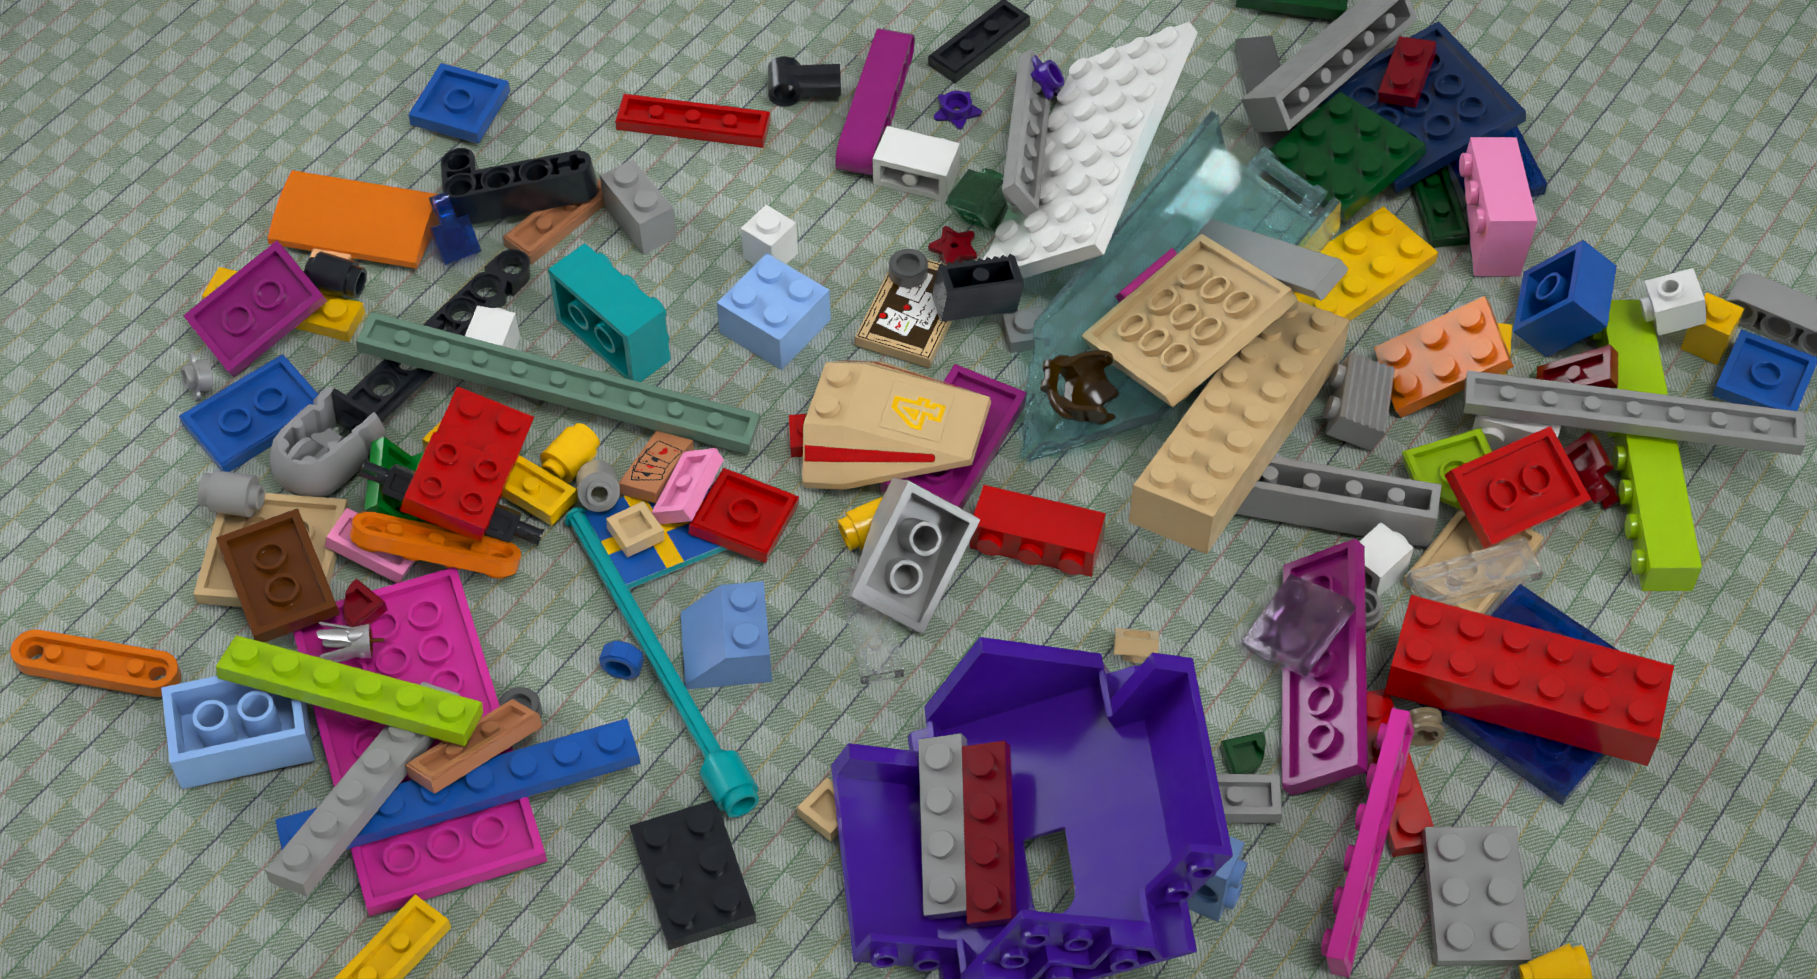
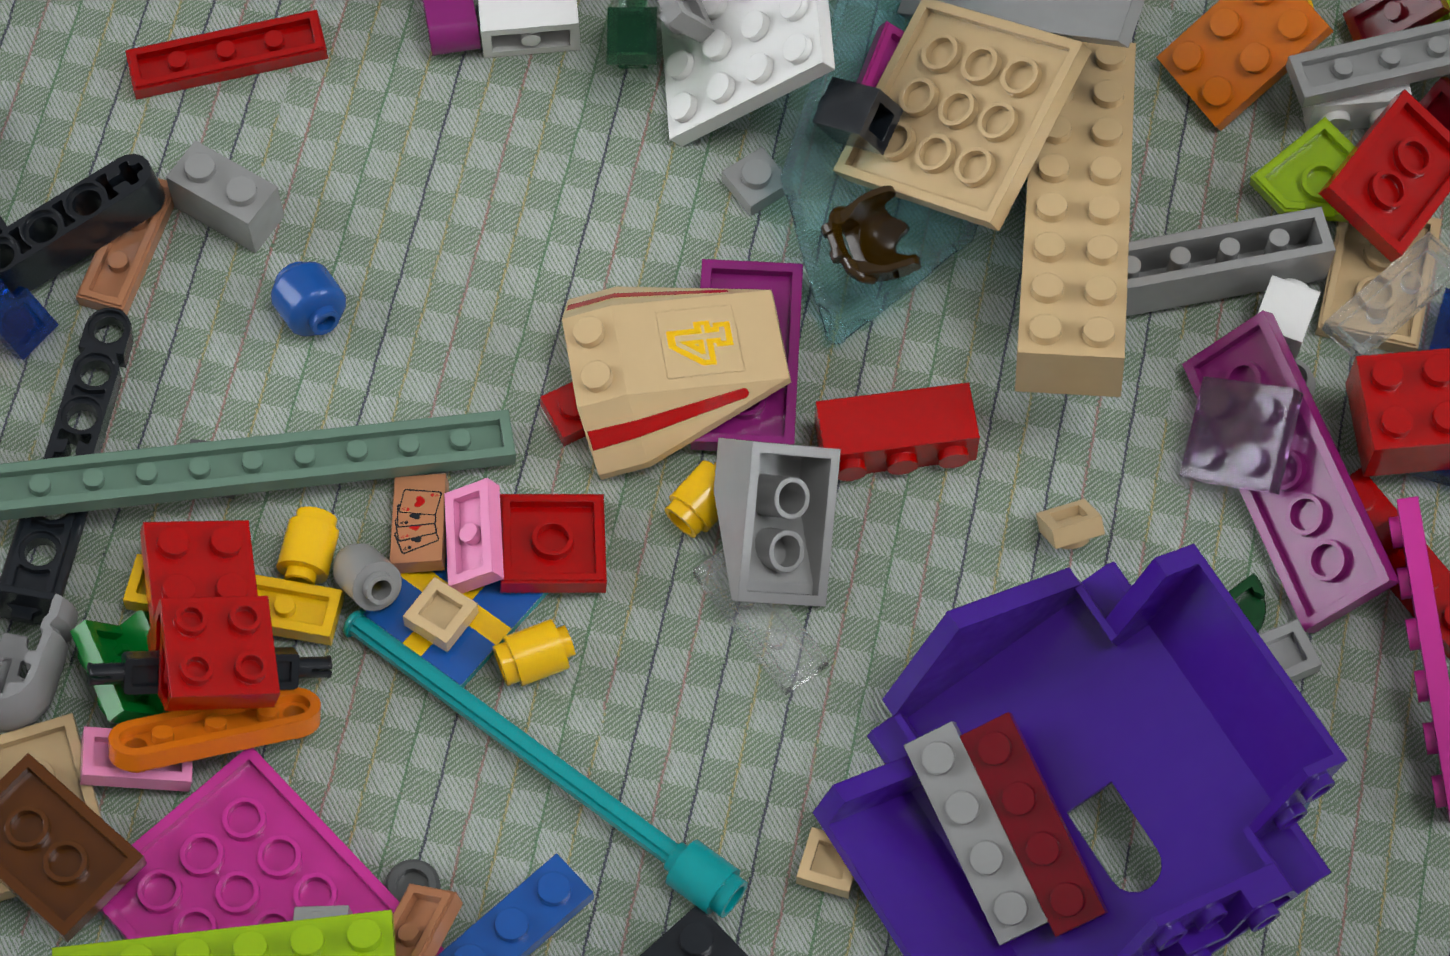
camera: 25 degrees left, 10 degrees up
(354, 641) = (190, 884): flat silver piece -> none
(362, 605) = (167, 843): dark red tile -> none
(494, 326) = (134, 423): white brick -> none
(610, 313) = (270, 352): teal brick -> none
(621, 660) = (504, 780): blue tile -> none
(664, 284) = (308, 298): none -> blue head
(687, 581) = (534, 653): none -> yellow brick
(727, 637) = (611, 703): medium blue slope -> none
(771, 234) = (406, 182): white brick -> none
(774, 311) = (458, 272): light blue brick -> none
(904, 322) = (615, 204): tile -> none
(908, 268) = (588, 156): dark grey tile -> none
(950, 237) = (623, 119): dark red plate -> none
(977, 288) = (689, 156): black brick -> none
(1111, 298) = (857, 115): none -> black brick
(1359, 401) = (1176, 132): light grey brick -> none
(1426, 726) = (1424, 488): dark tan bush -> none

